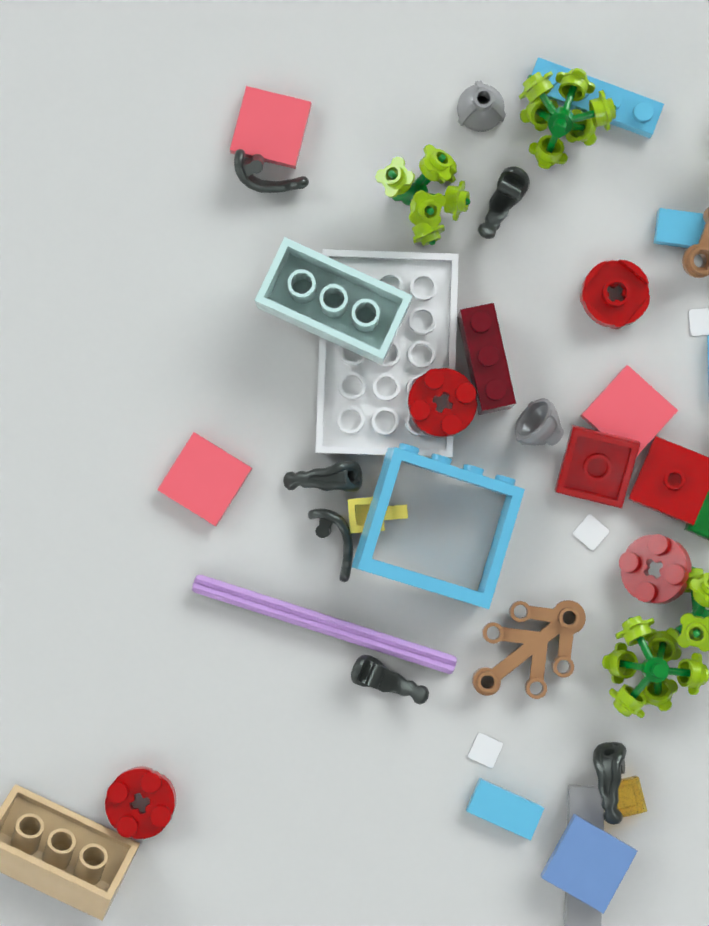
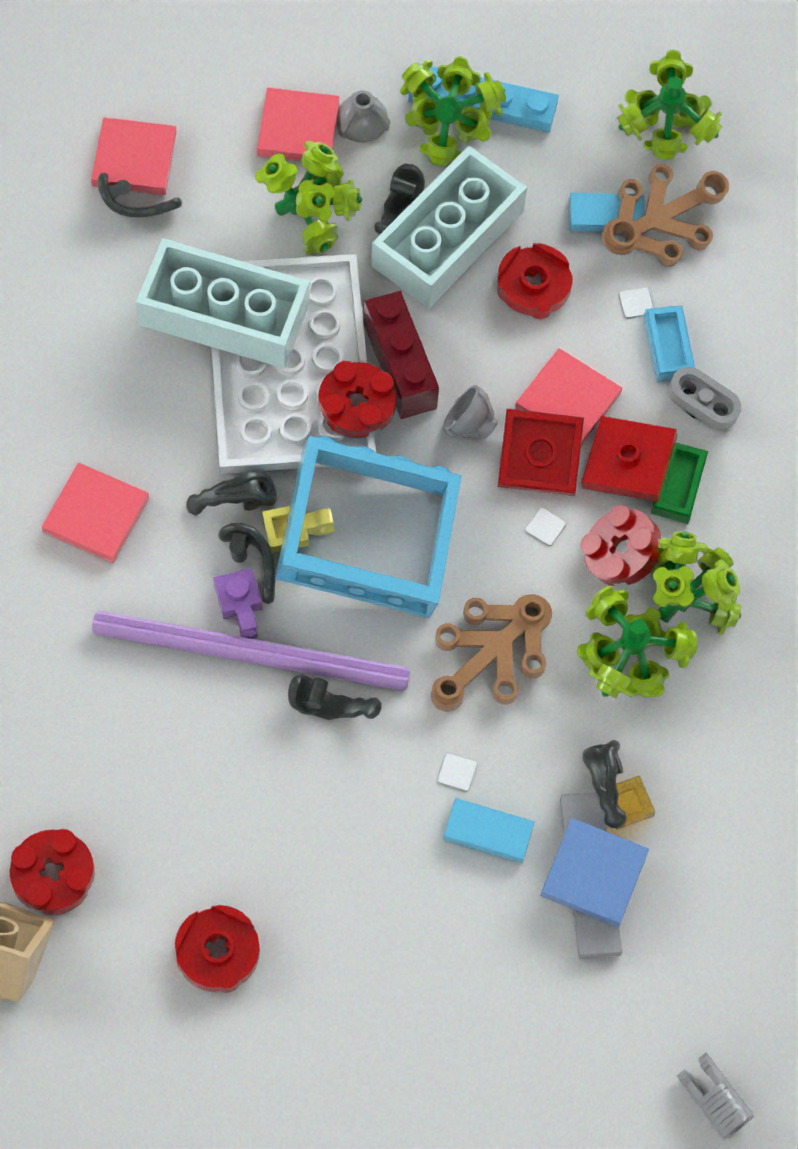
camera: 10 degrees left, 20 degrees down
(288, 880) = (226, 971): none -> red plate
(319, 572) = (239, 598): none -> medium lavender plate
(421, 110) = (293, 119): none -> coral tile
(545, 235) = (448, 227): none -> light aqua brick

